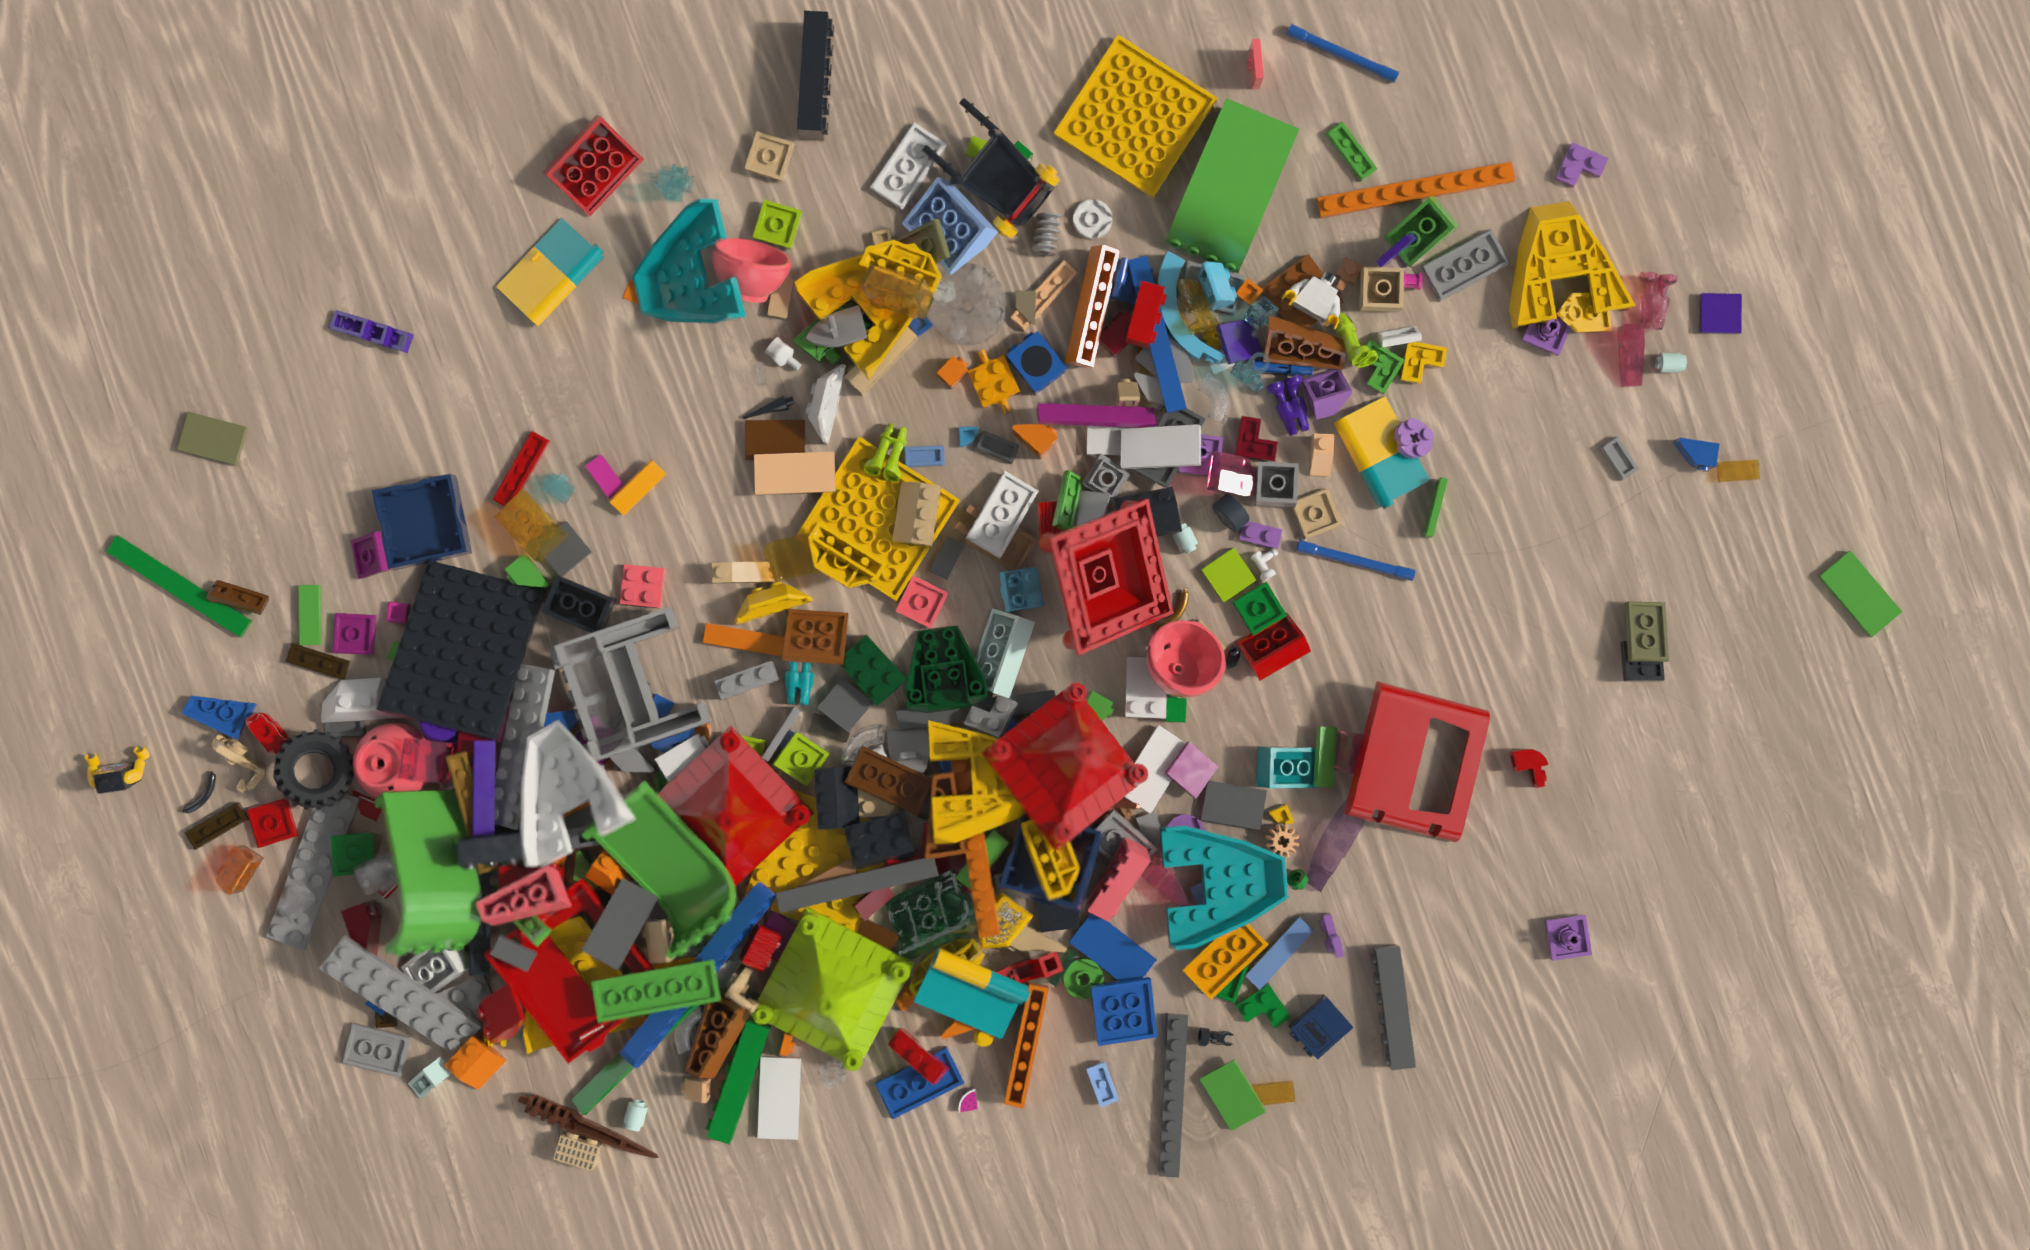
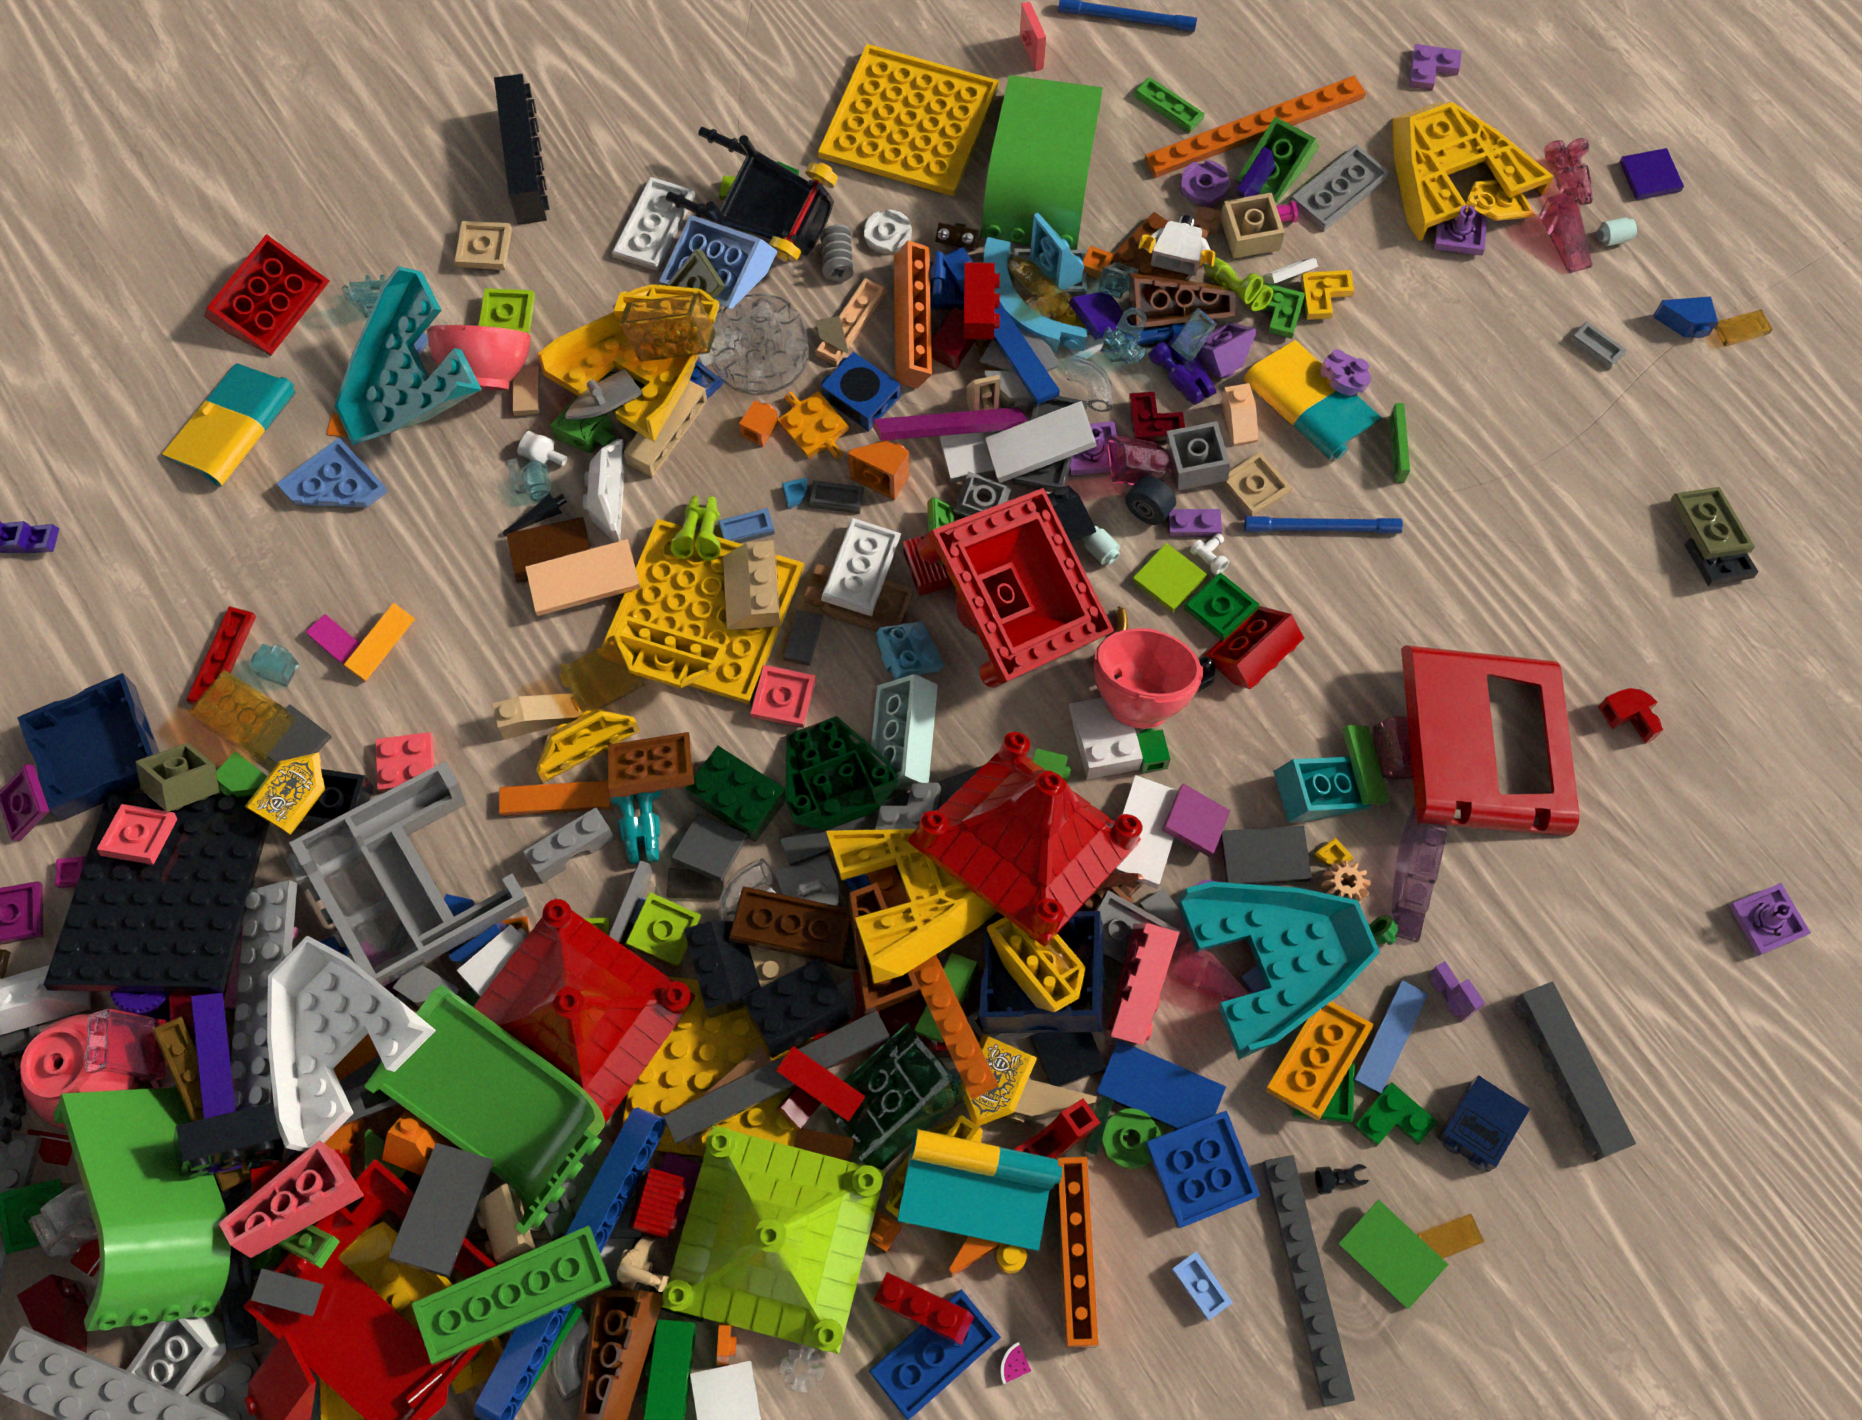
camera: 10 degrees left, 20 degrees down
(448, 605) = (137, 834): none -> coral plate
(480, 566) = (177, 777): none -> olive brick
(558, 599) = (289, 792): none -> yellow tile
(622, 342) = (333, 479): none -> medium blue plate
(775, 381) = (536, 480): none -> clear light blue brick
(884, 897) = (820, 1083): none -> red tile
(1145, 241) = (958, 235): none -> dark brown piece
(1304, 381) = (1193, 334): none -> clear light blue tile
(1357, 225) = (1200, 194): none -> medium lavender plate

